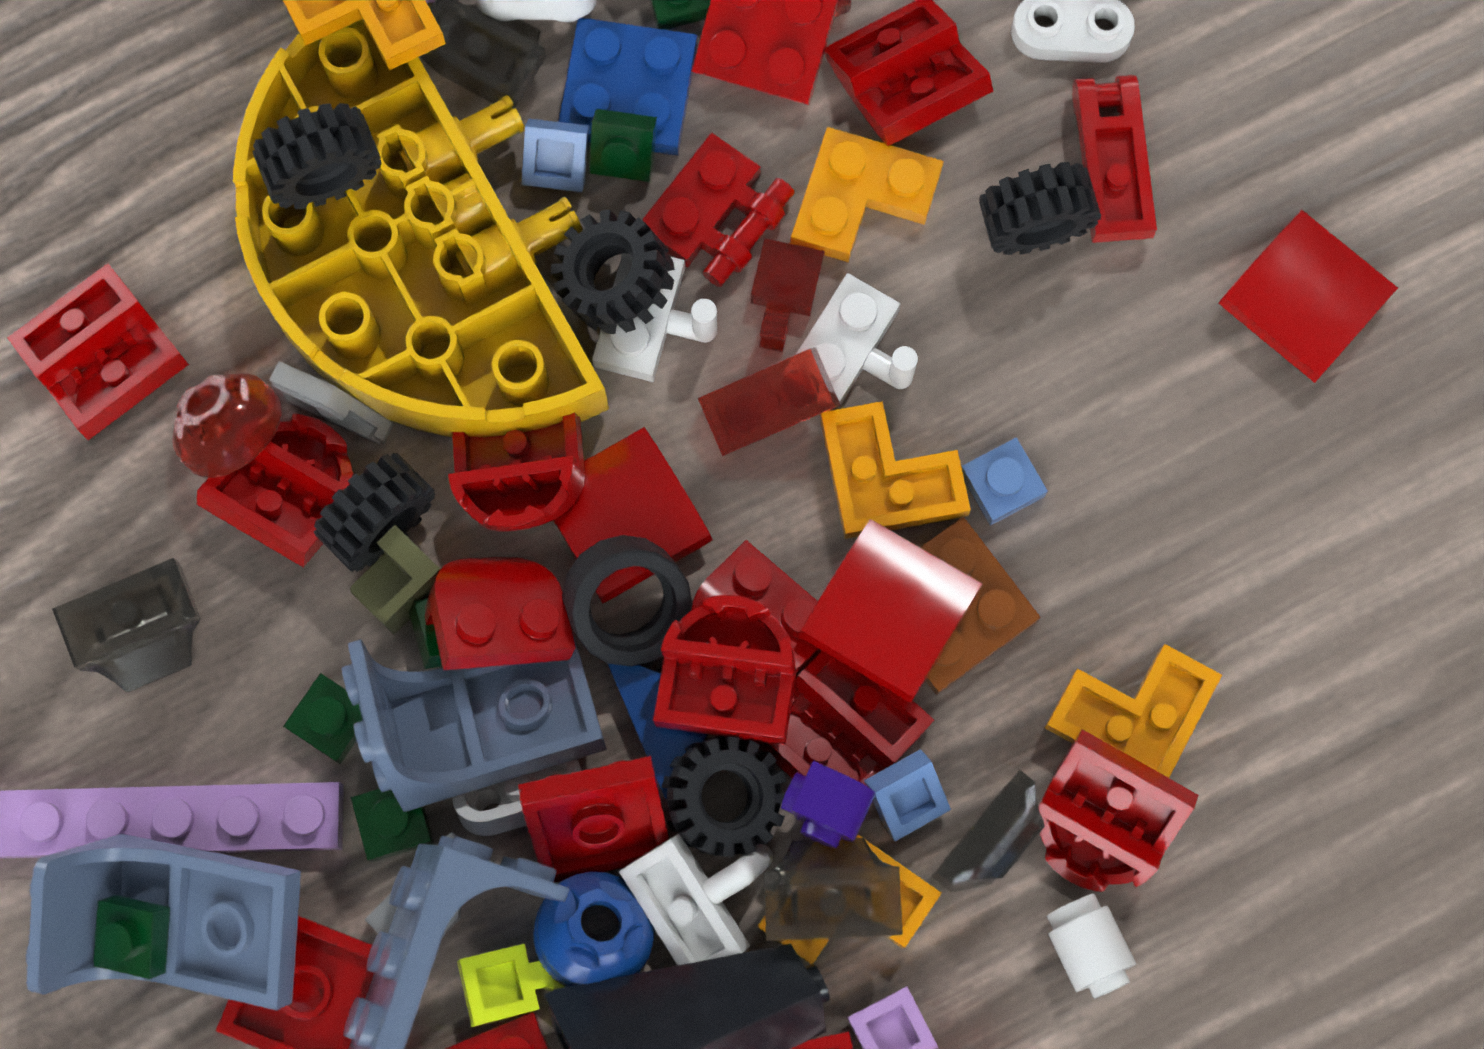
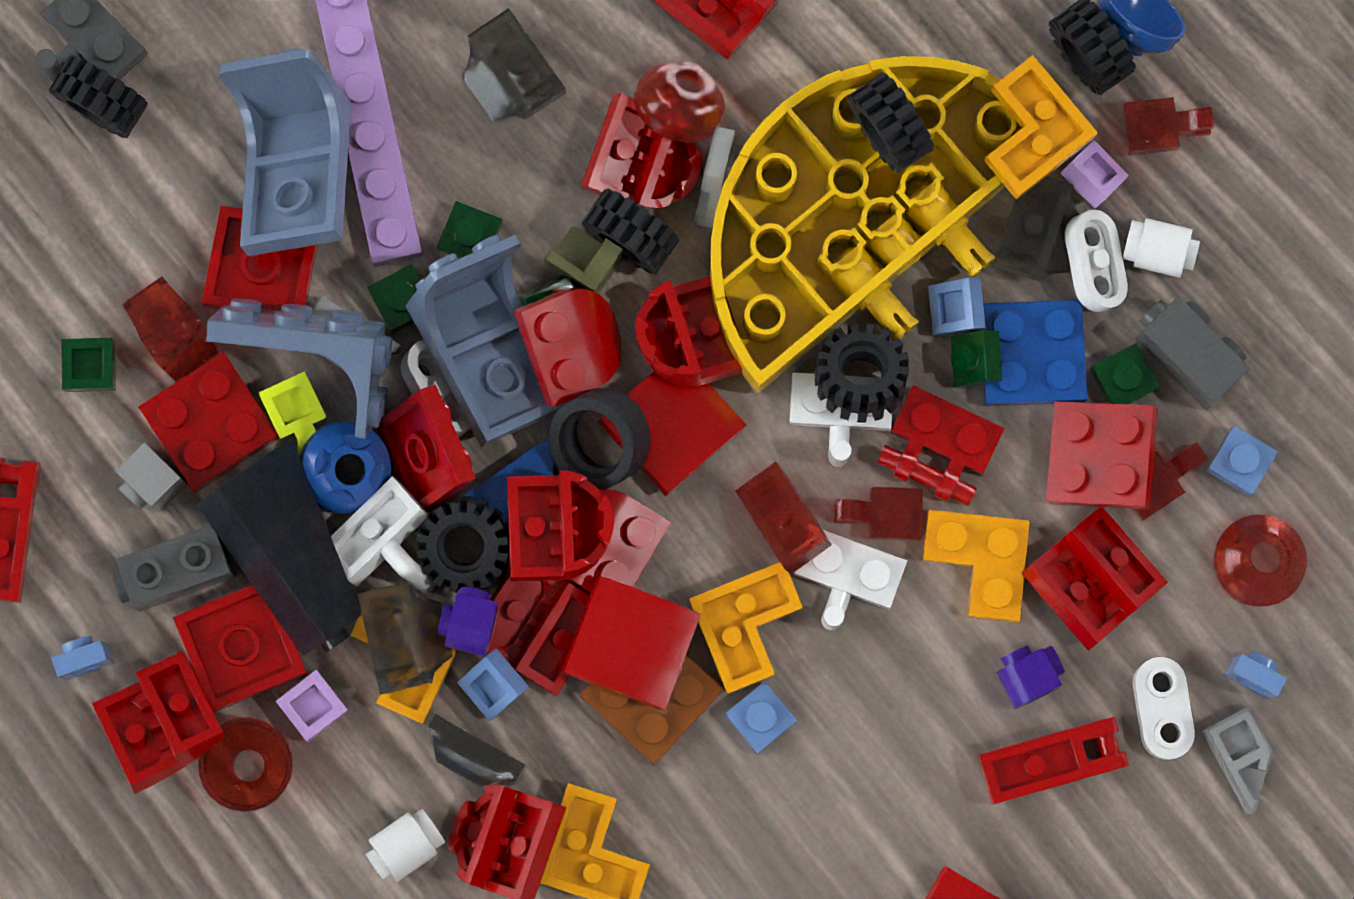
camera: 75 degrees right, 5 degrees up
(131, 936) = (274, 129): dark green plate -> none
(1008, 150) = (1030, 674): none -> dark purple plate
(1039, 208) = (987, 703): black tyre -> none

